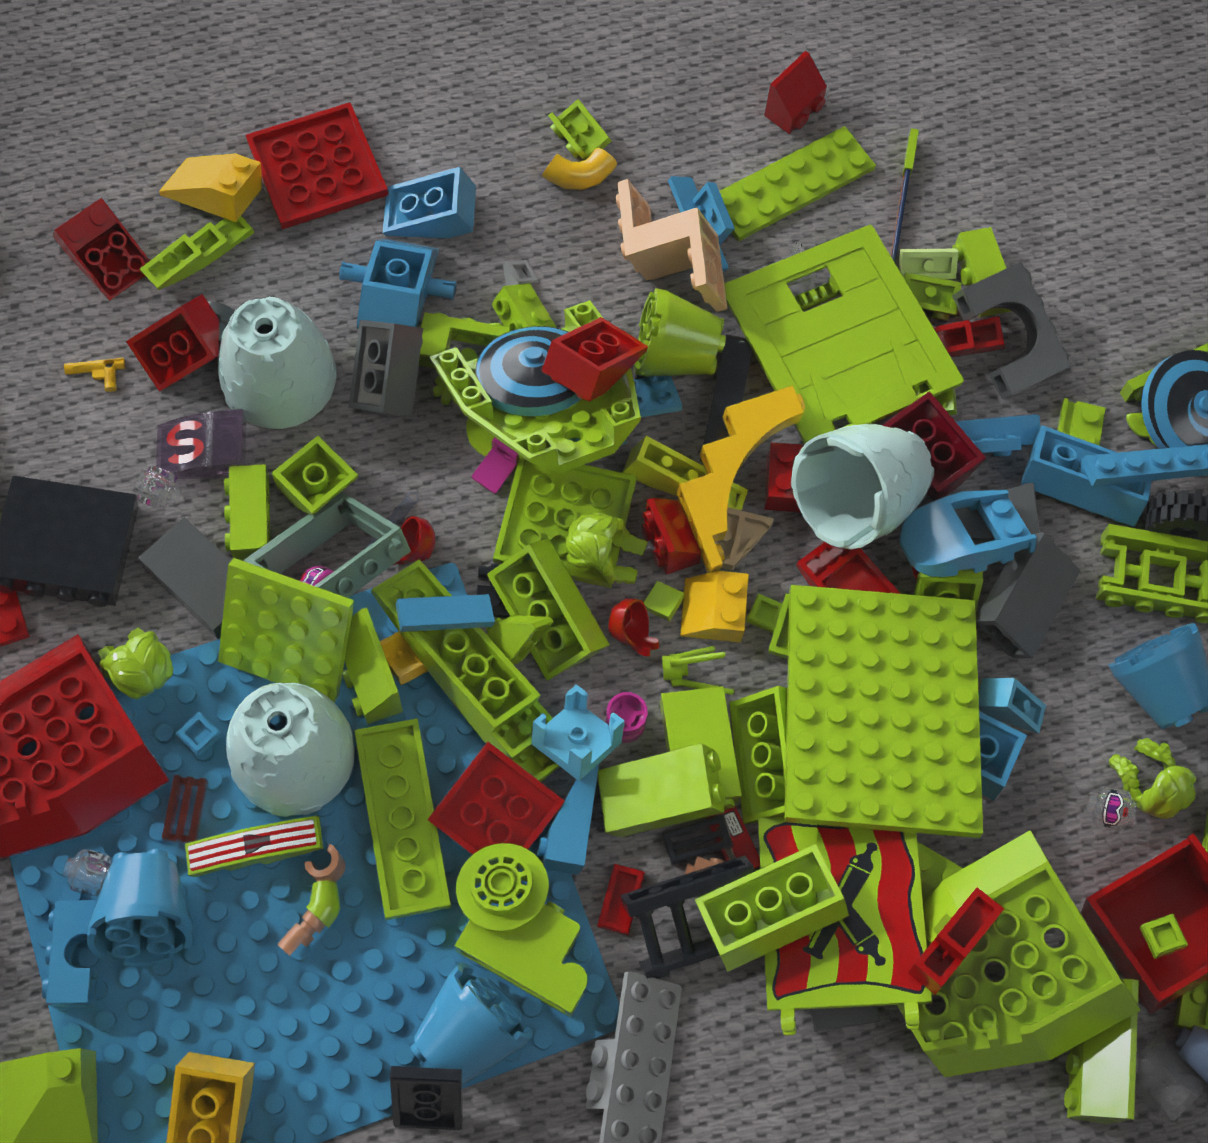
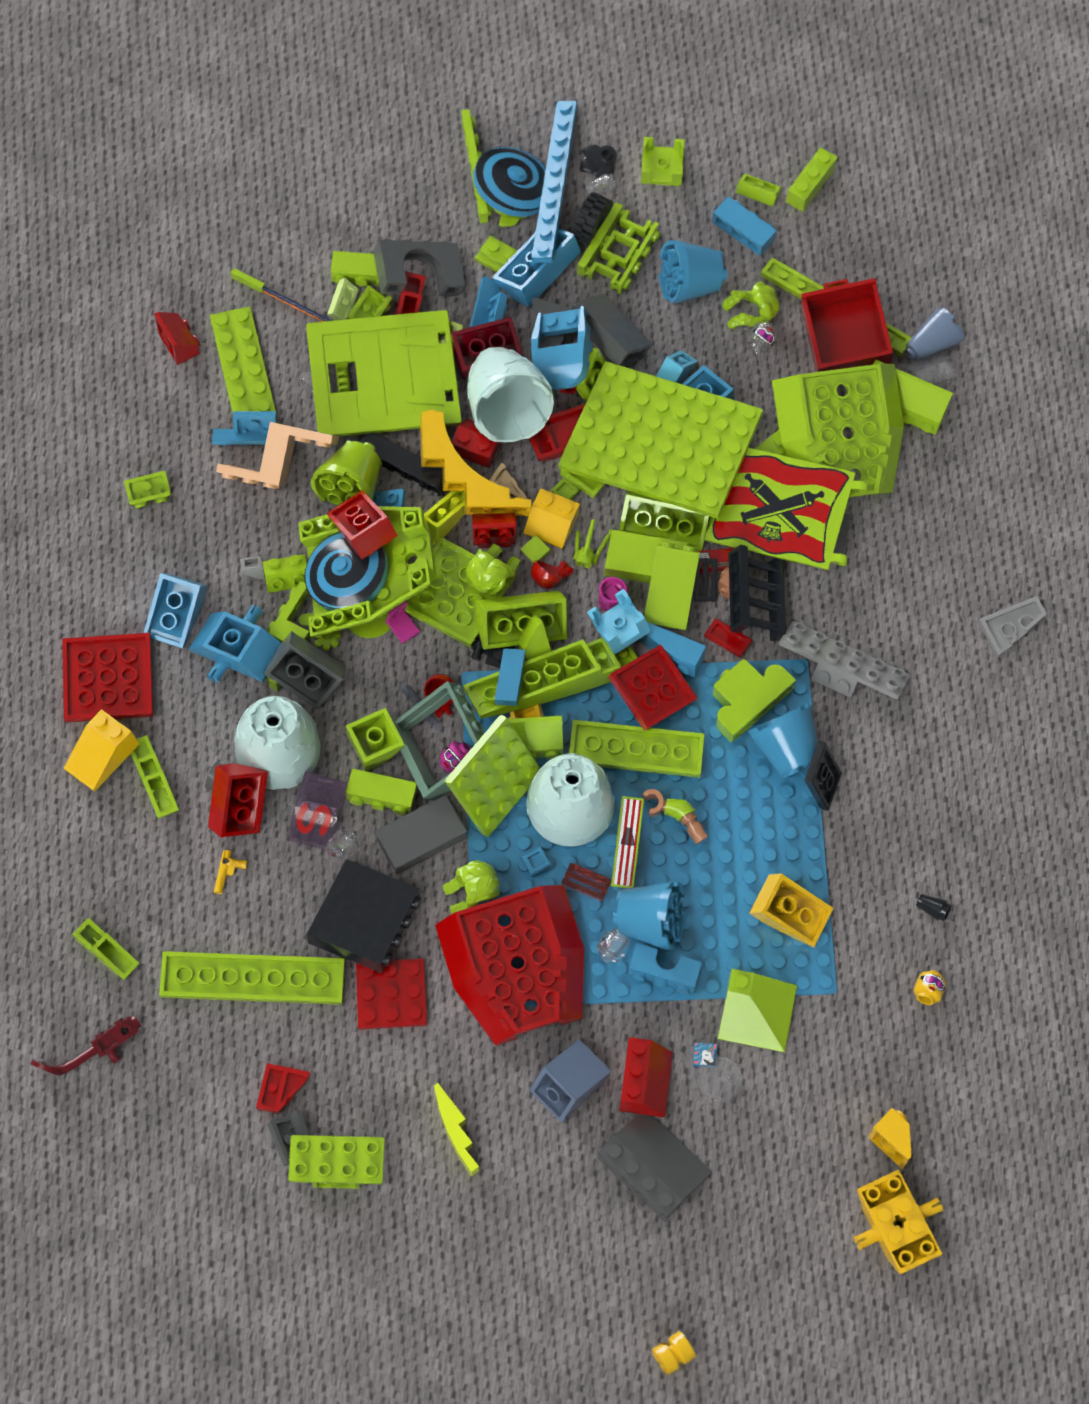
camera: 70 degrees left, 0 degrees up
(102, 249) = (126, 842): red slope -> none
(501, 883) = (704, 693): lime wheel -> none
(580, 174) = (185, 500): yellow cylinder -> none
(772, 907) = (769, 543): lime slope -> none
(956, 940) = (826, 445): red slope -> none
(1163, 936) = (856, 334): lime tile -> none

